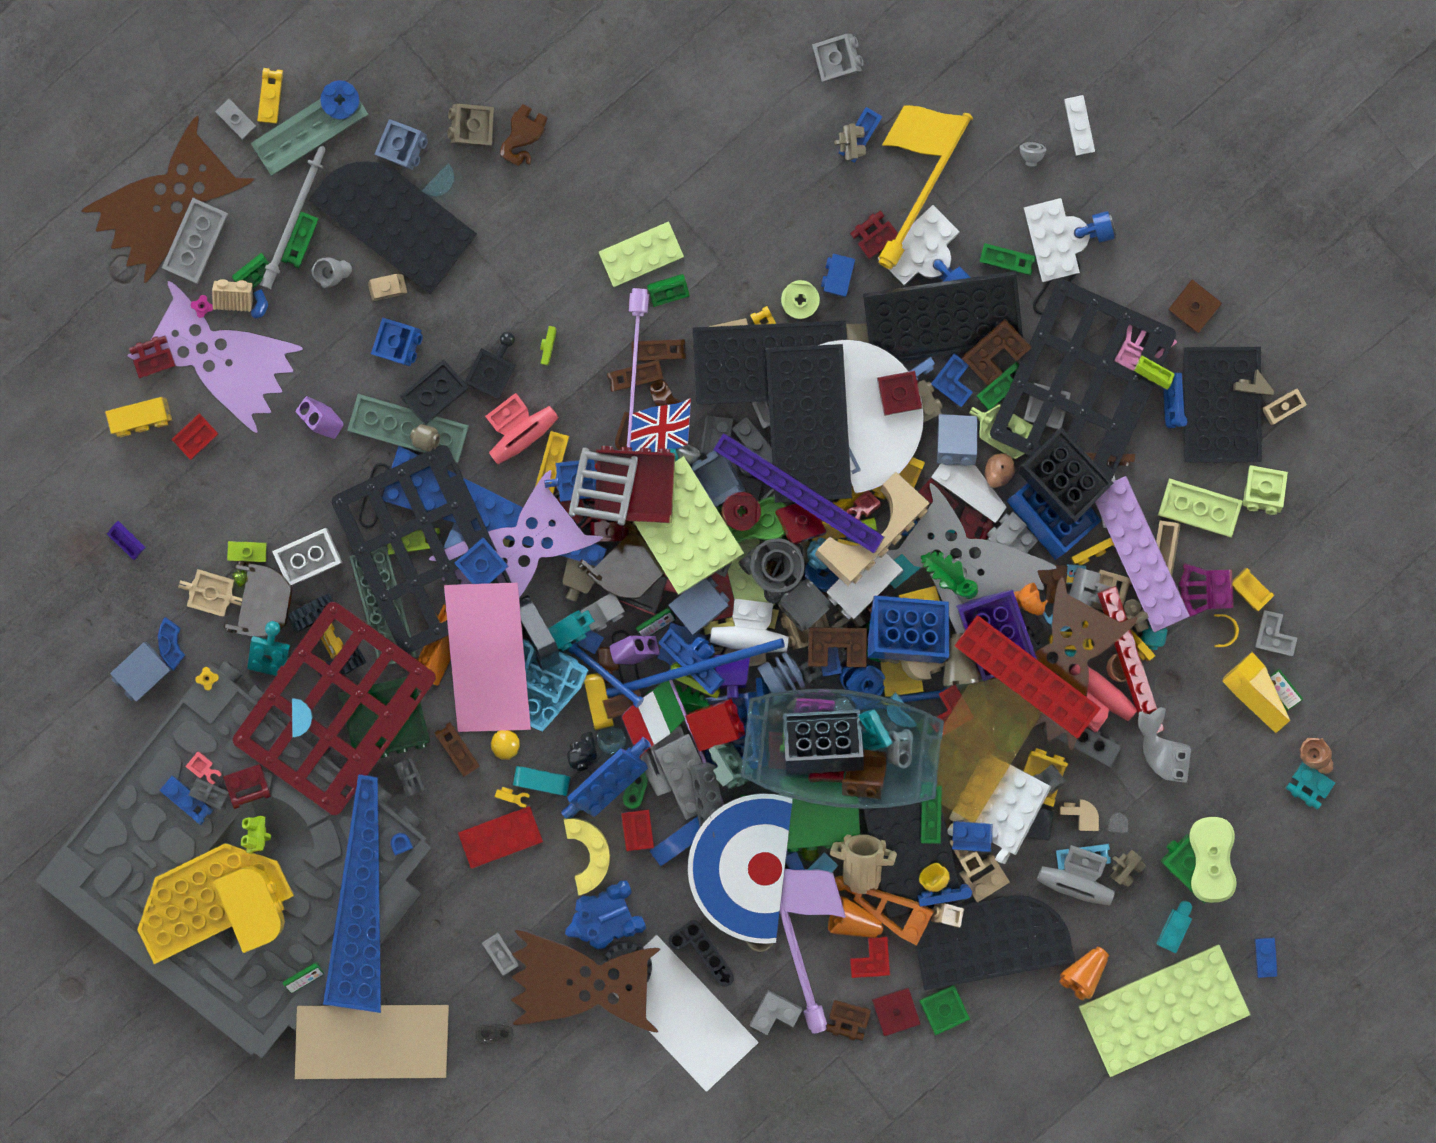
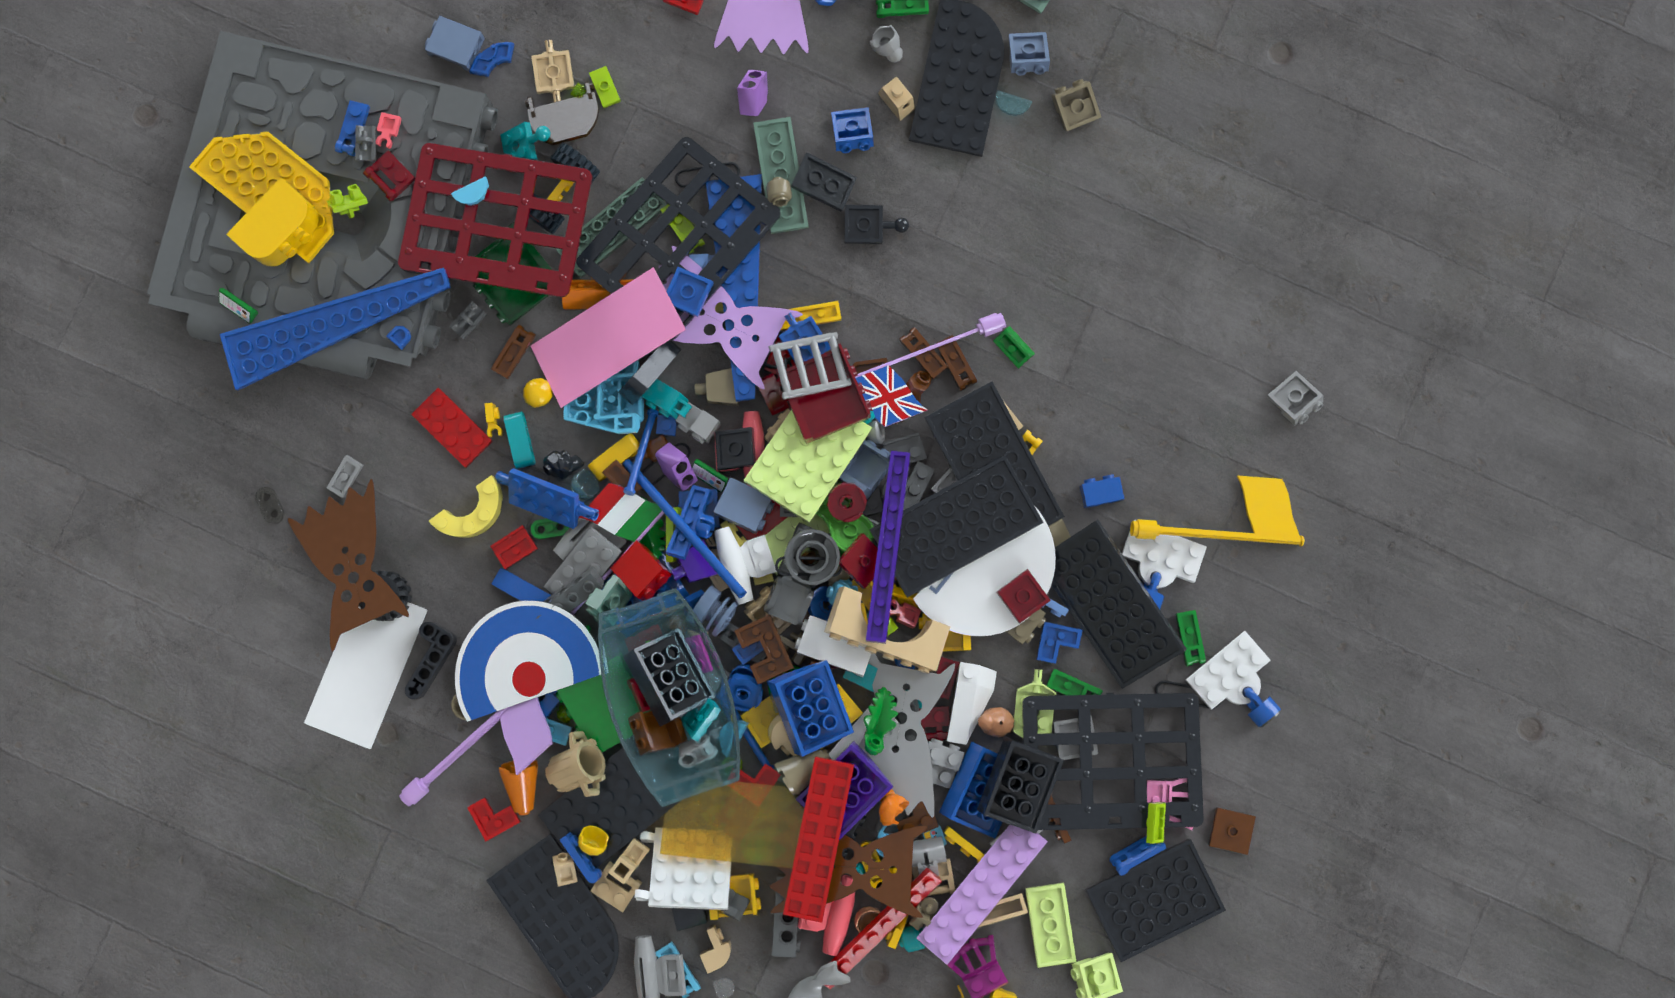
camera: 65 degrees right, 5 degrees down
(207, 673) = (474, 100): yellow plate -> none
(307, 557) = (624, 139): white brick -> none
(368, 1044) = (216, 415): tan sticker -> none
(519, 428) = (827, 271): coral plate -> none
(523, 133) = (1091, 154): reddish brown hips -> none
(547, 345) = (913, 262): lime plate -> none
(604, 917) = (421, 555): blue shield -> none
(628, 568) = (746, 425): piece -> none
(641, 254) = (1034, 308): yellowish green plate -> none
(774, 1007) = (408, 751): light grey brick -> none
(809, 293) = (1057, 477): yellowish green plate -> none
(848, 141) = (1225, 443): dark tan hips -> none
(848, 1014) = (432, 820): reddish brown plate -> none
(868, 120) = (1237, 452): blue plate -> none
(877, 240) = (1147, 510): dark red plate -> none
(896, 1011) = (455, 863): dark red plate -> none
(916, 923) = (544, 843): orange plate -> none
(931, 819) = (645, 812): green plate -> none
(944, 1009) = (477, 907): green tile -> none
(956, 439) = (1005, 669): brick -> none
(972, 836) = (647, 857): blue plate -> none
(1000, 337) = (1118, 664): reddish brown plate -> none
(1032, 152) = (1297, 614): light grey brick -> none
(1079, 125) = (1343, 646): white plate -> none
(1259, 385) = (1189, 927): dark tan slope -> none
(1283, 406) = (1182, 959): tan brick -> none

